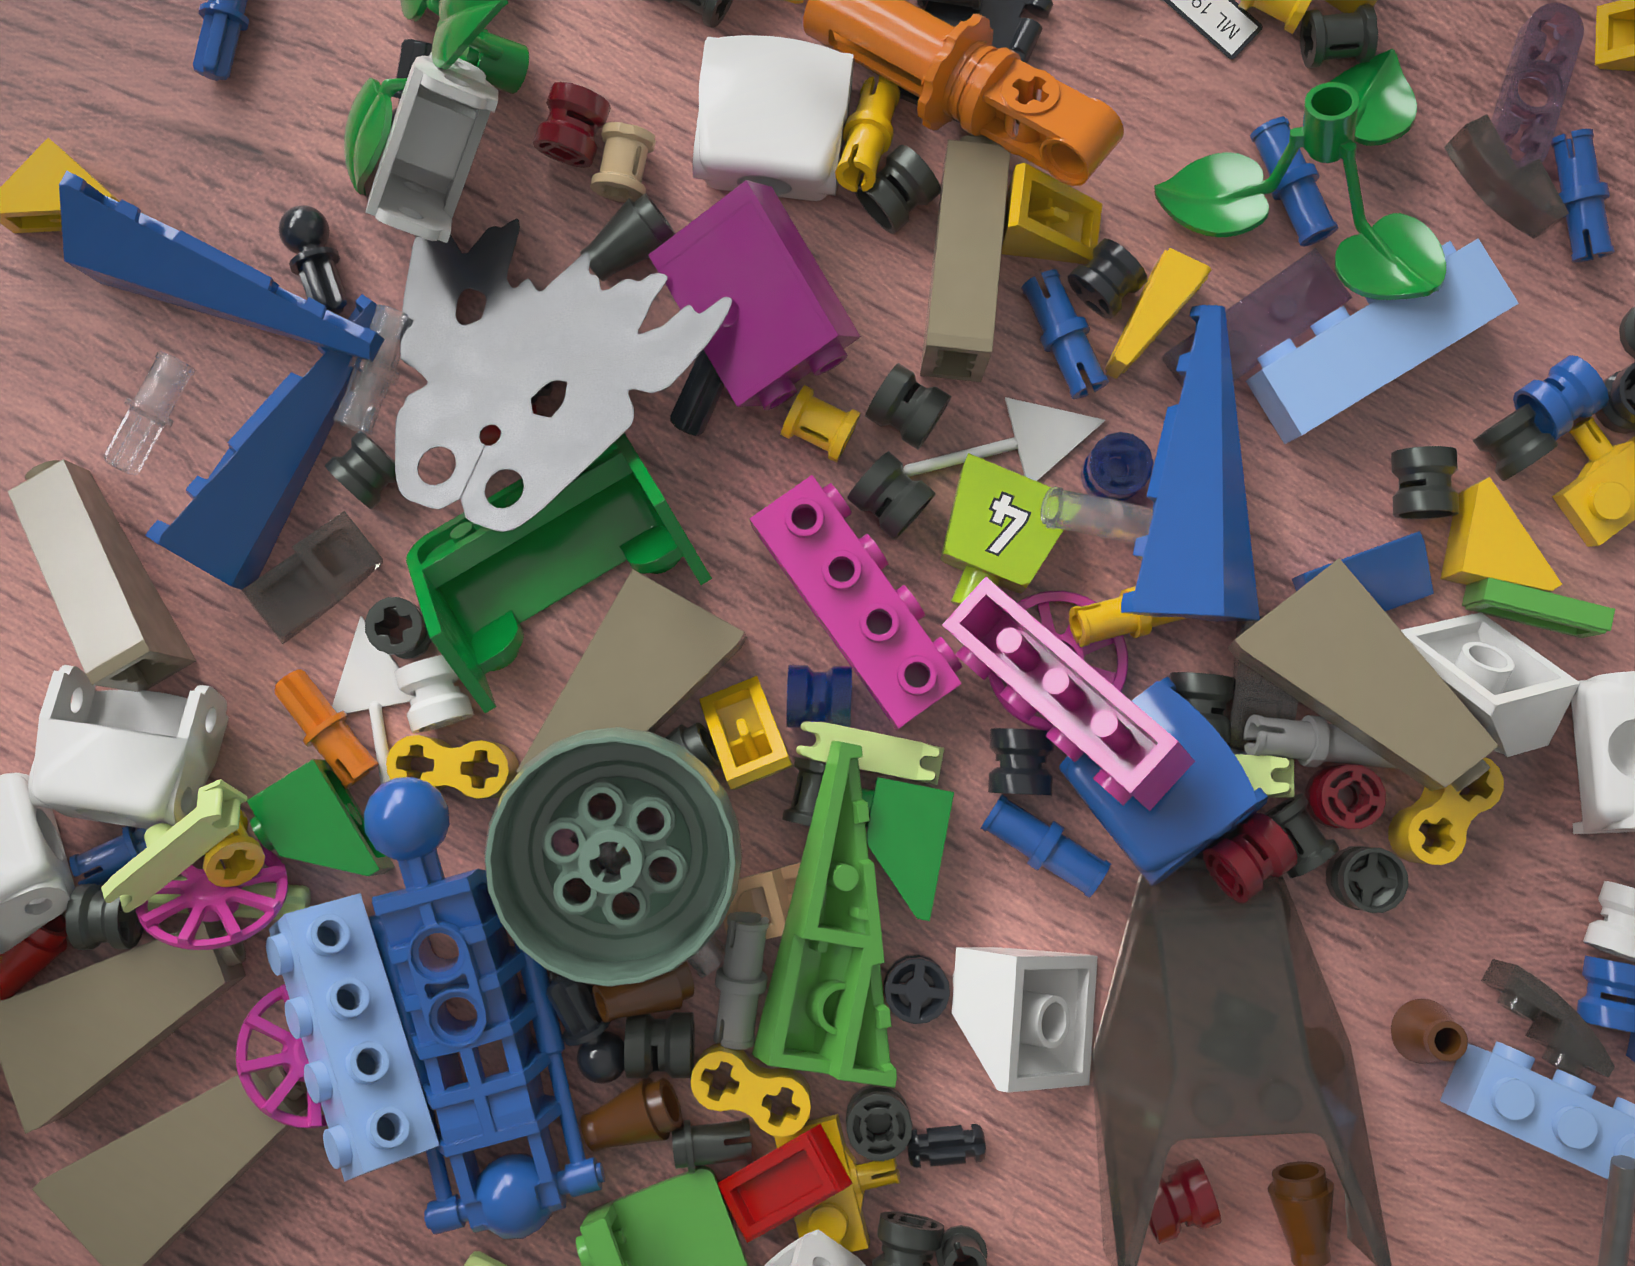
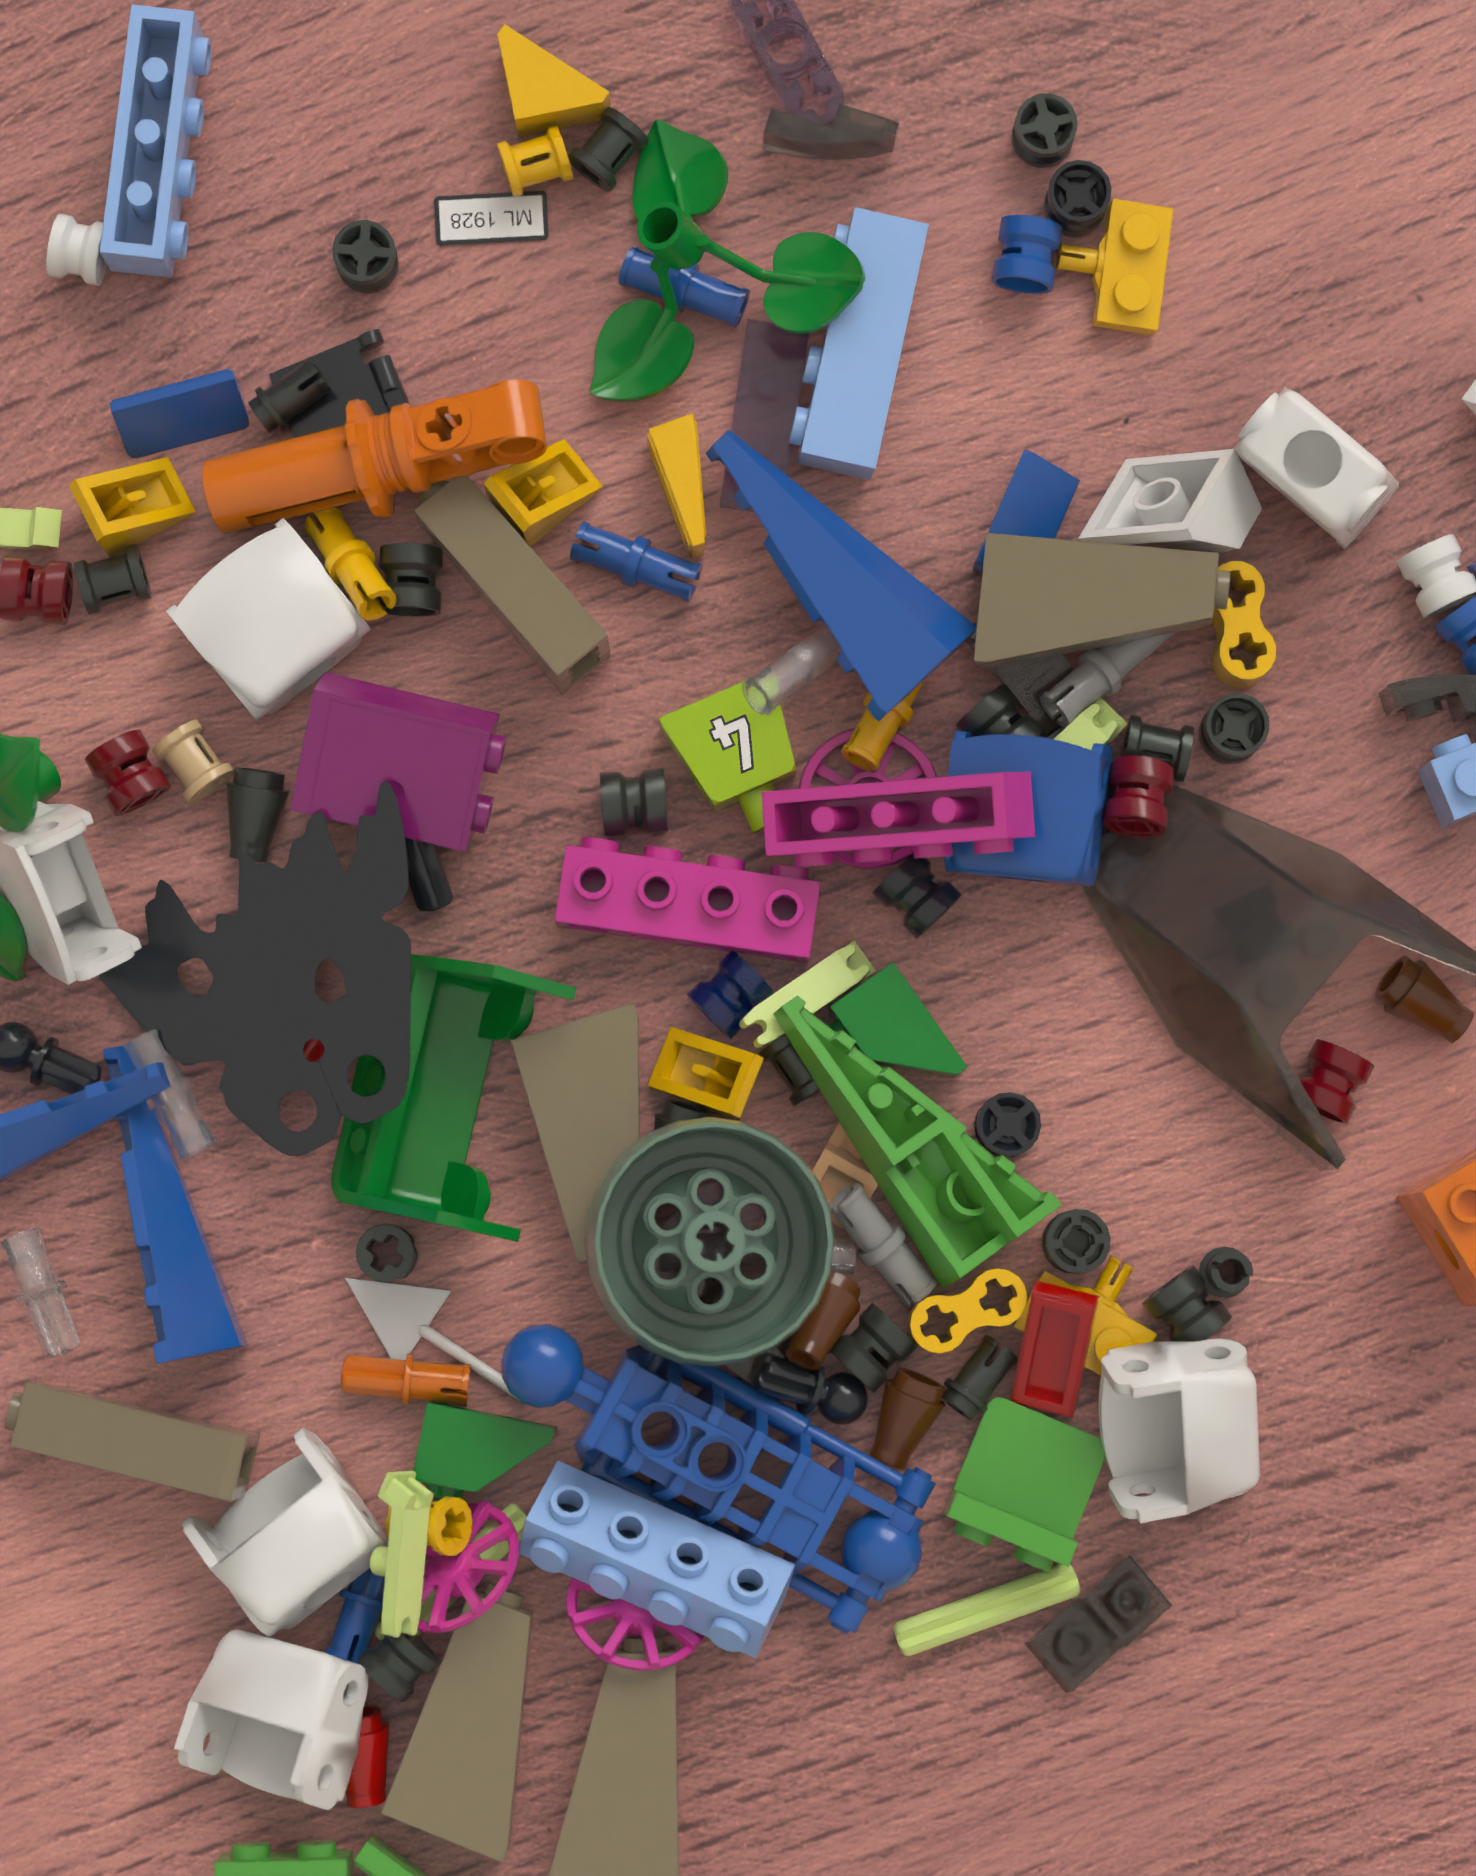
camera: 55 degrees left, 0 degrees up
(314, 578) = (284, 1285): clear smoke slope -> none
(364, 469) = (242, 1169): pearl dark grey wheel -> none
(435, 697) = (459, 1273): white wheel -> none
(454, 765) = (526, 1305): yellow axle -> none
(820, 423) = (531, 802): yellow bush -> none
(907, 406) = (579, 727): pearl dark grey wheel -> none
(946, 1145) = (1139, 1210): black piece -> none
(1027, 1014) = (1100, 1061): white slope -> none
(1040, 435) = (694, 651): white piece -> none
(1046, 846) = (994, 934): blue pin -> none
(1107, 278) = (625, 491): black wheel -> none
(1108, 476) = (771, 633): clear blue wheel -> none
(1331, 796) = (1153, 695): dark red wheel -> none
(1415, 1032) = (1370, 802): reddish brown cone -> none
(1425, 482) = (994, 410): pearl dark grey wheel -> none
(1493, 543) = (1086, 409): yellow slope -> none
(1515, 442) = (1027, 317): pearl dark grey wheel -> none
(1538, 608) = (1159, 419): bright green tile -> none
(1583, 195) = (895, 91): blue pin -> none

